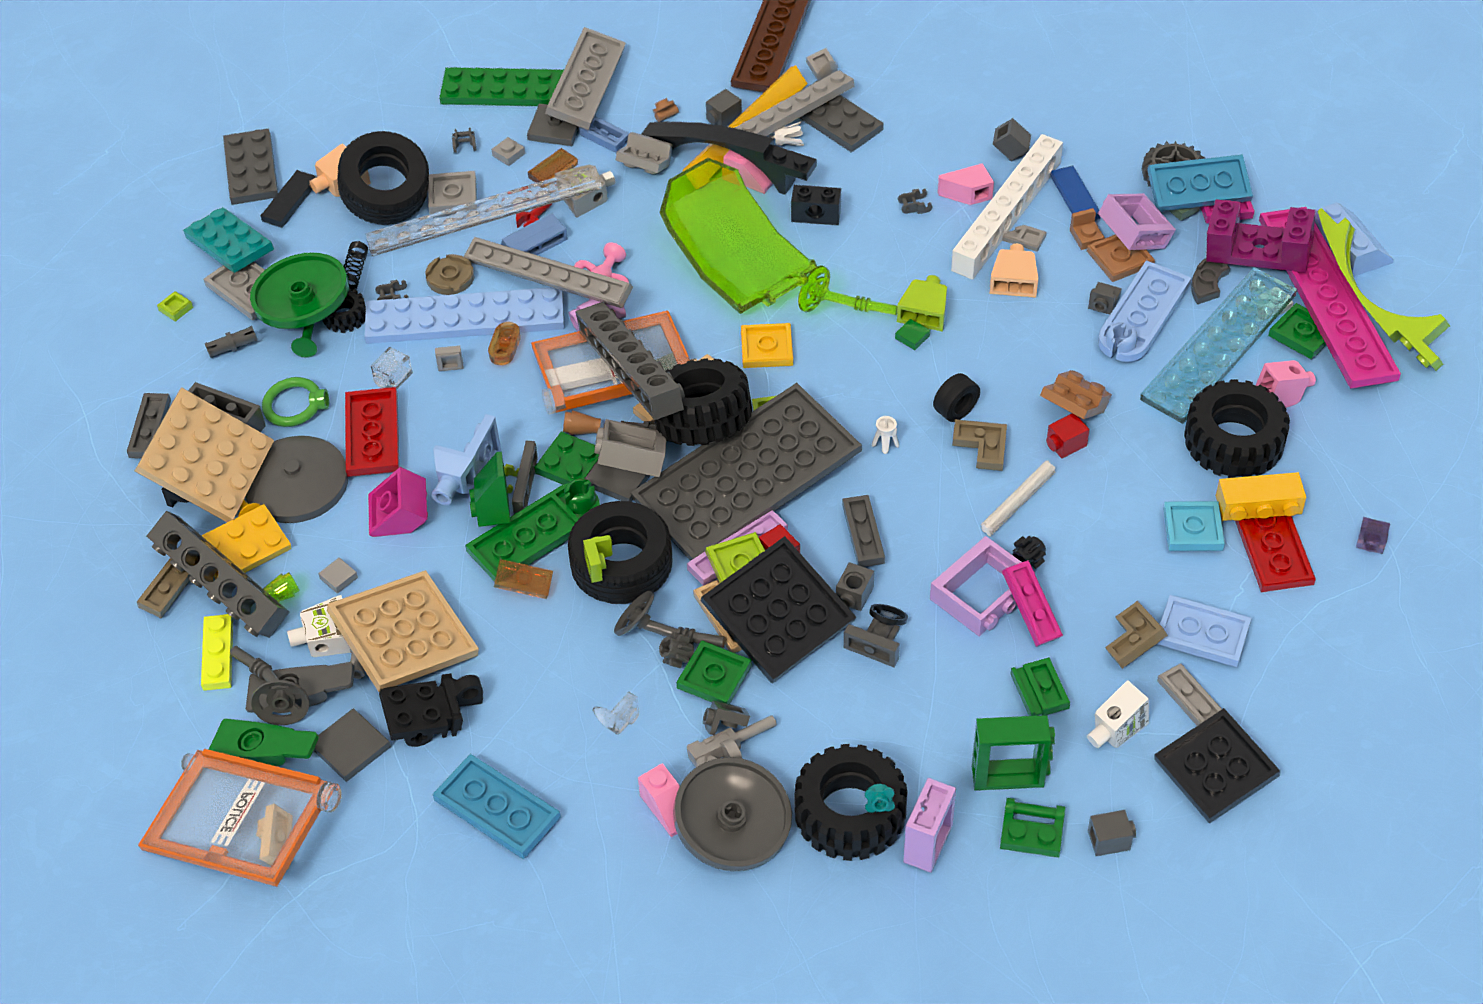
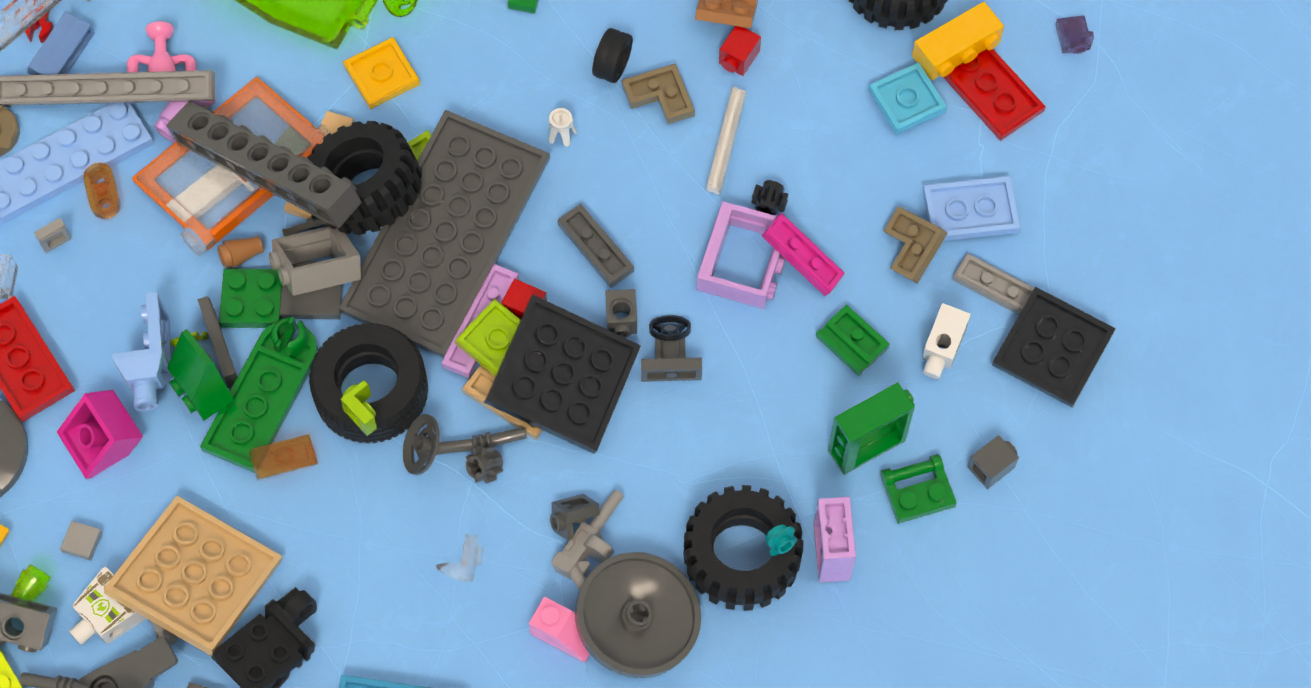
camera: 30 degrees left, 15 degrees up
(714, 673) = (534, 471): green plate -> none

